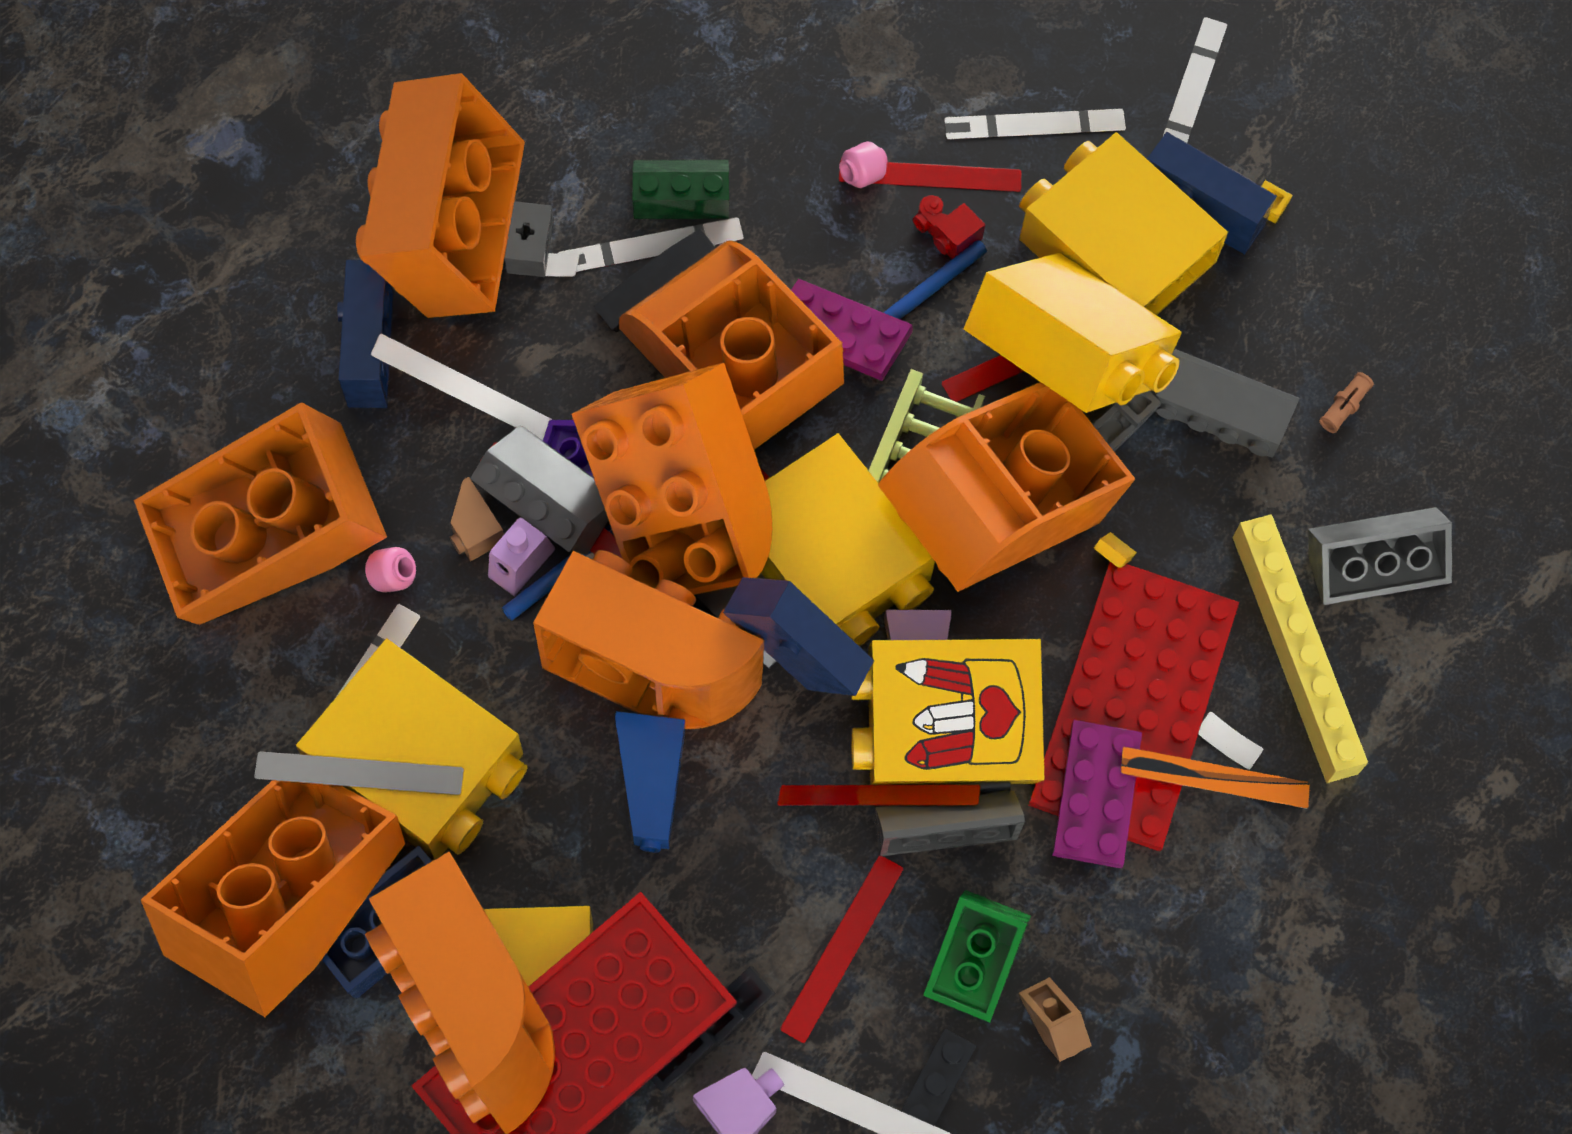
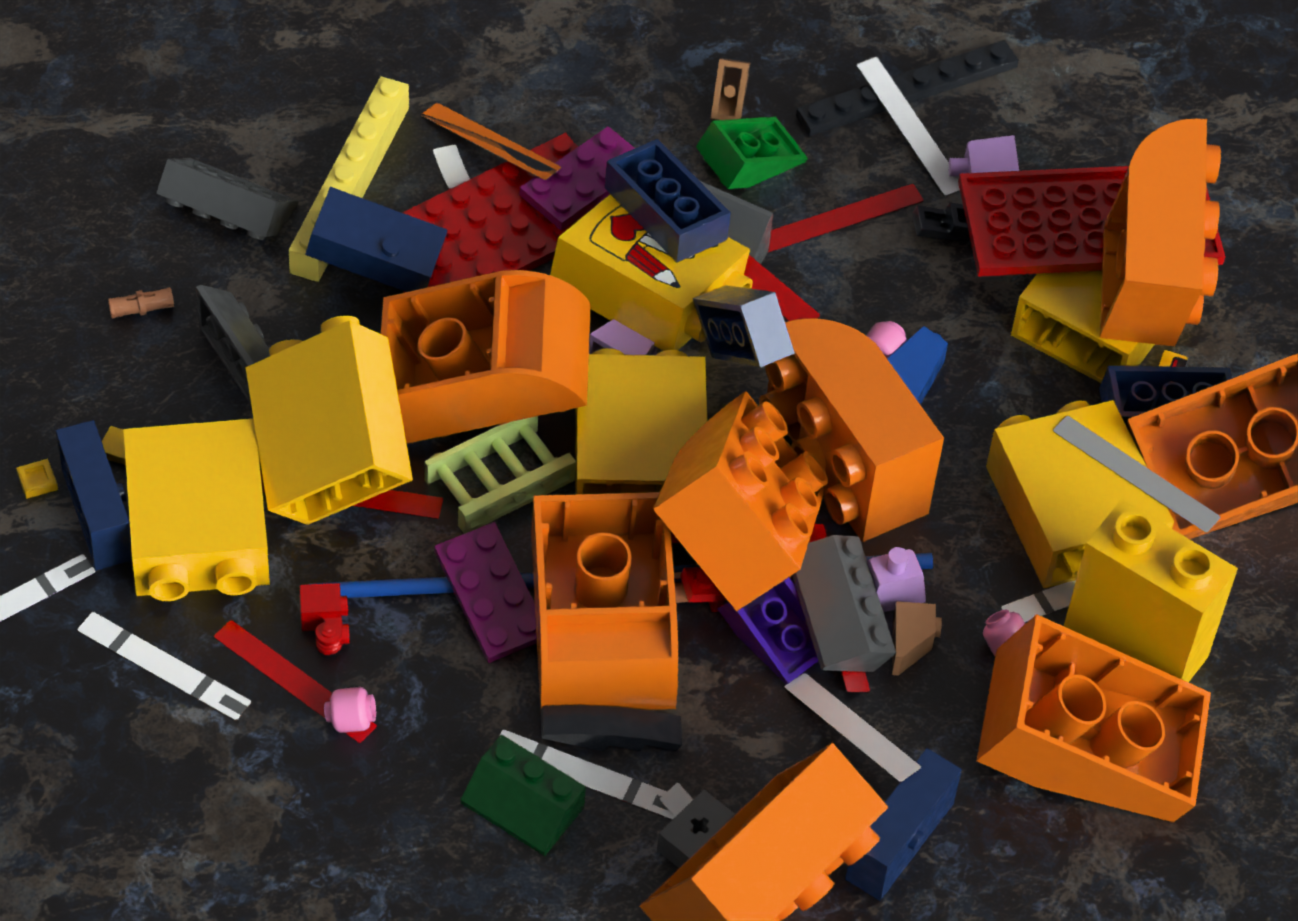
camera: 145 degrees left, 15 degrees down
(266, 628) = (1149, 592): none -> yellow brick
(695, 805) = (887, 336): none -> bright pink head
(980, 753) = (667, 200): none -> dark blue brick
(1202, 560) = (375, 241): none -> dark blue brick
(1238, 269) = (114, 445): none -> yellow tile

